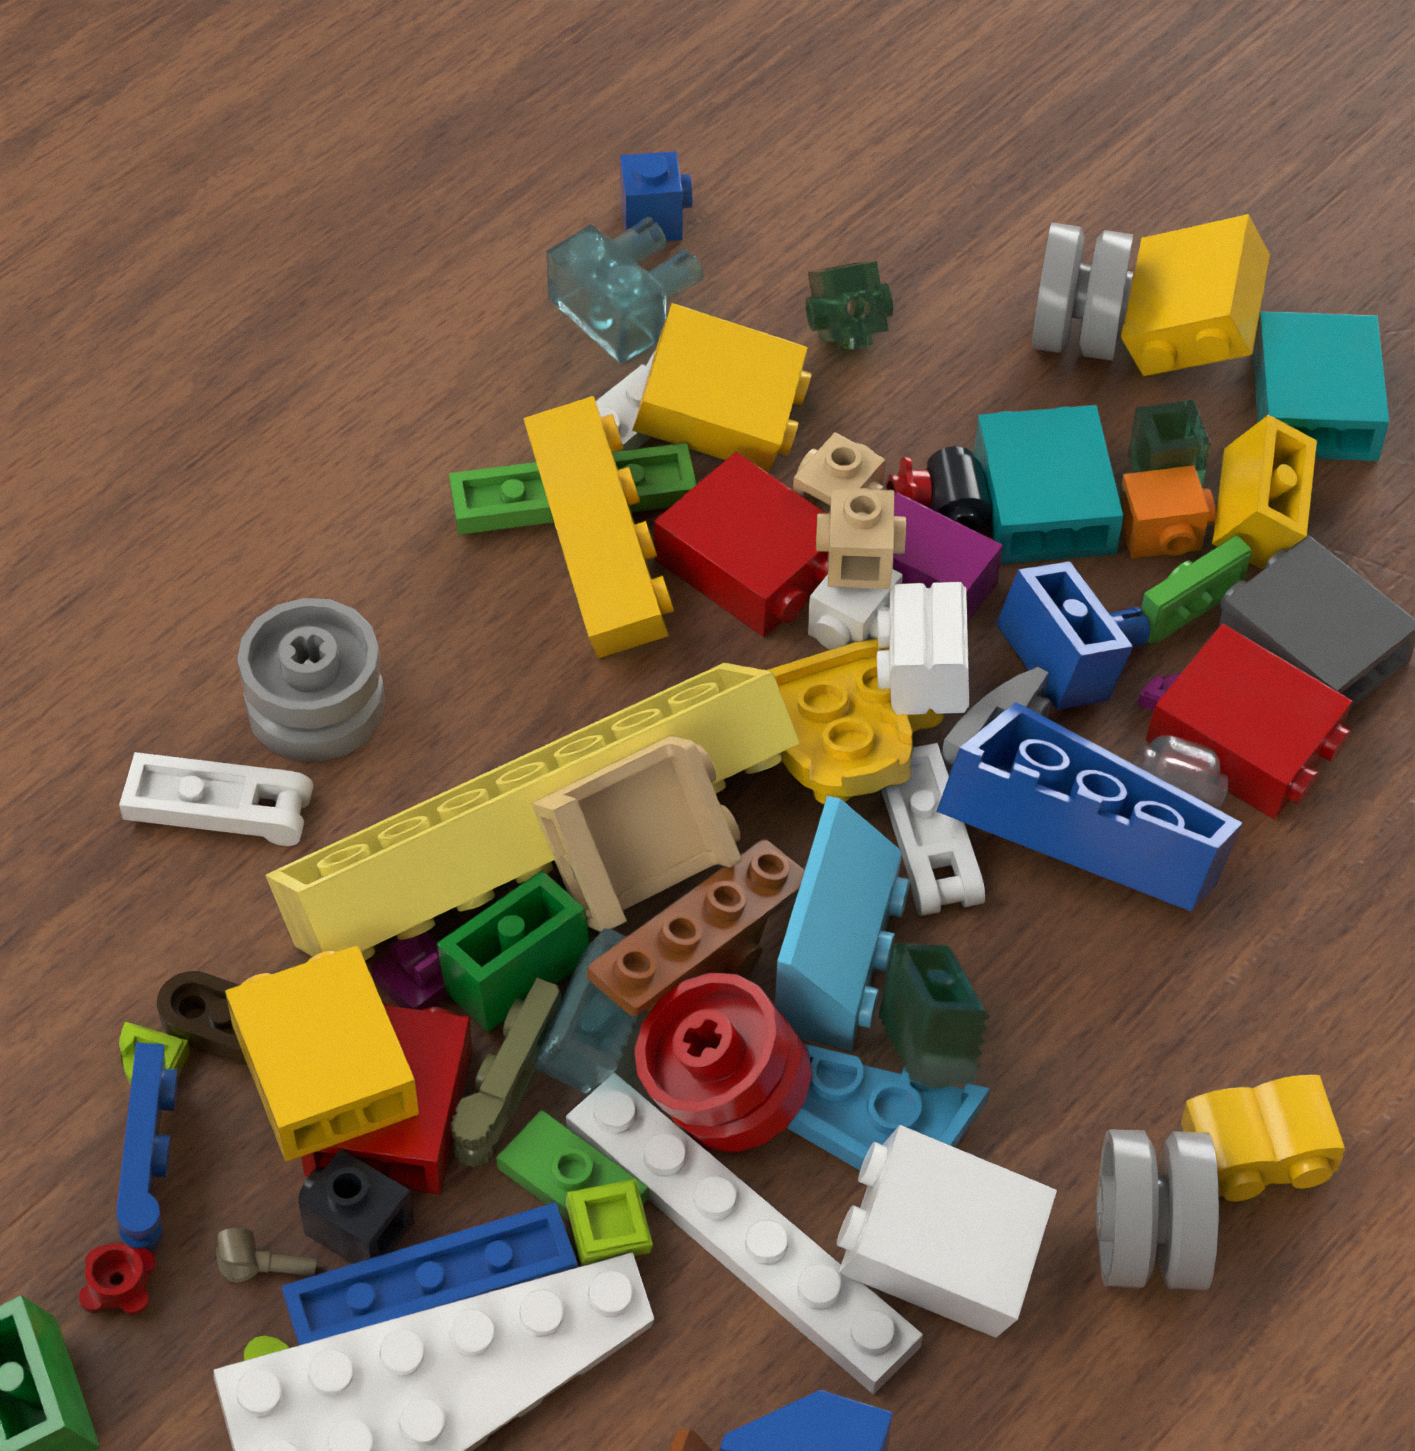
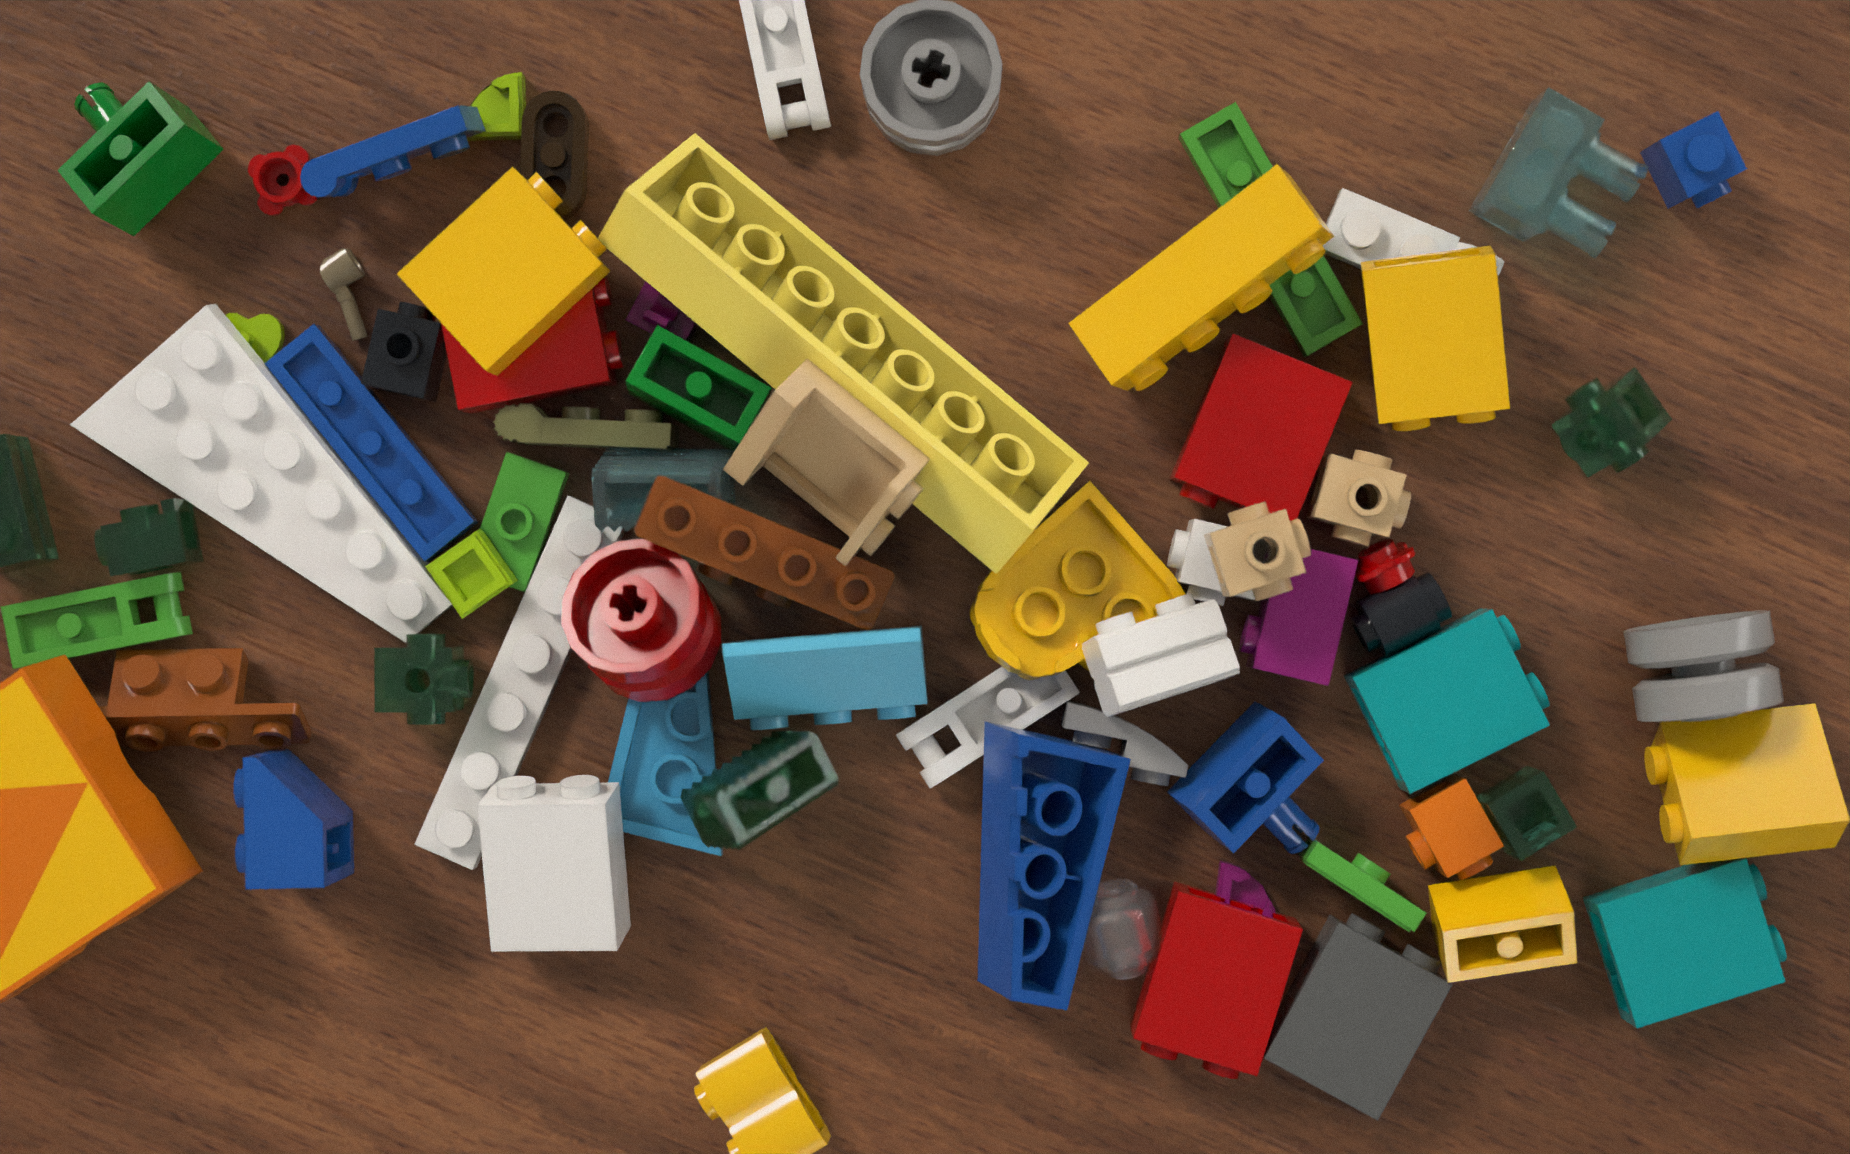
camera: 70 degrees right, 35 degrees up
(700, 1302) = (400, 681): none -> clear green brick
(1157, 1209) = (634, 1046): light grey wheel -> none

